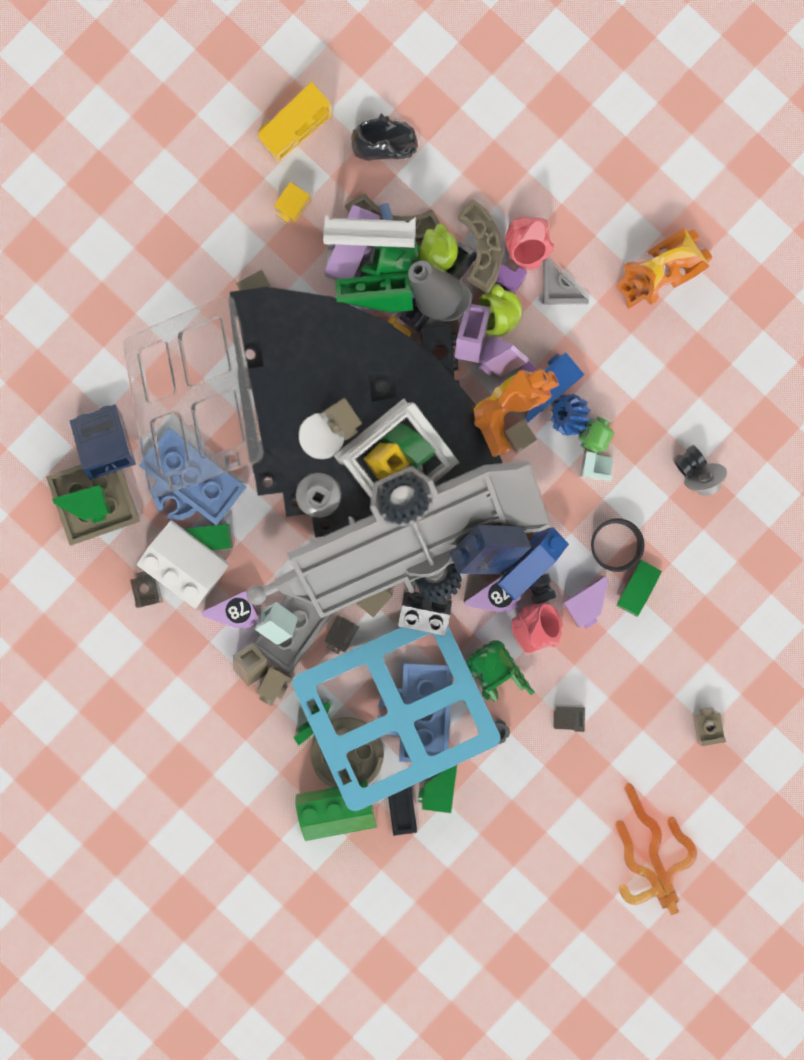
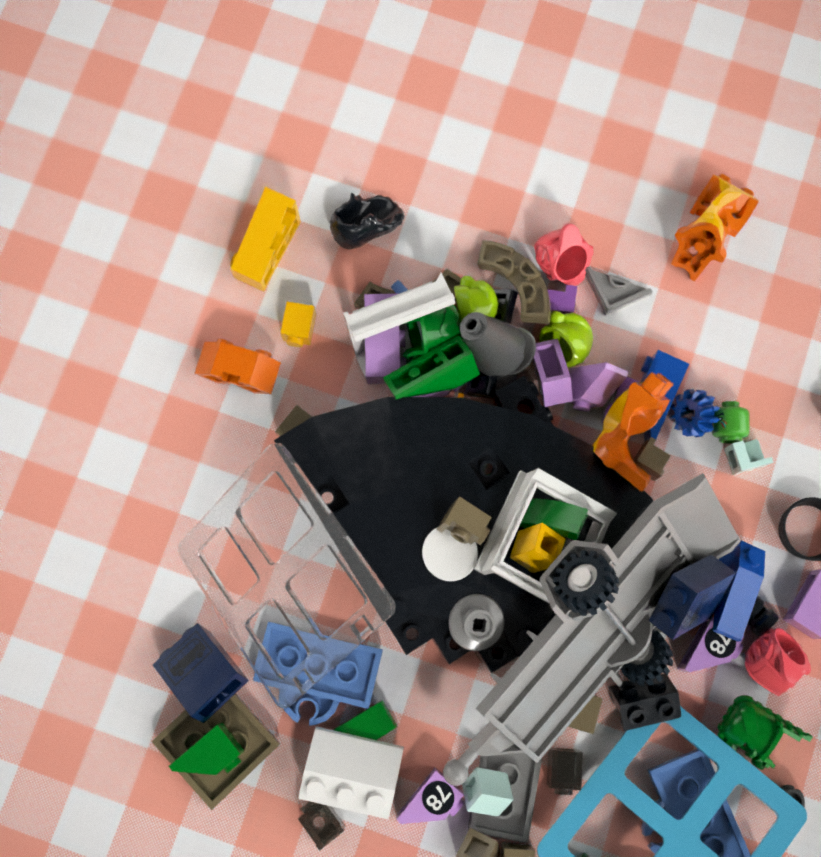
camera: 25 degrees left, 10 degrees down
(227, 216) = (239, 366): none -> orange brick

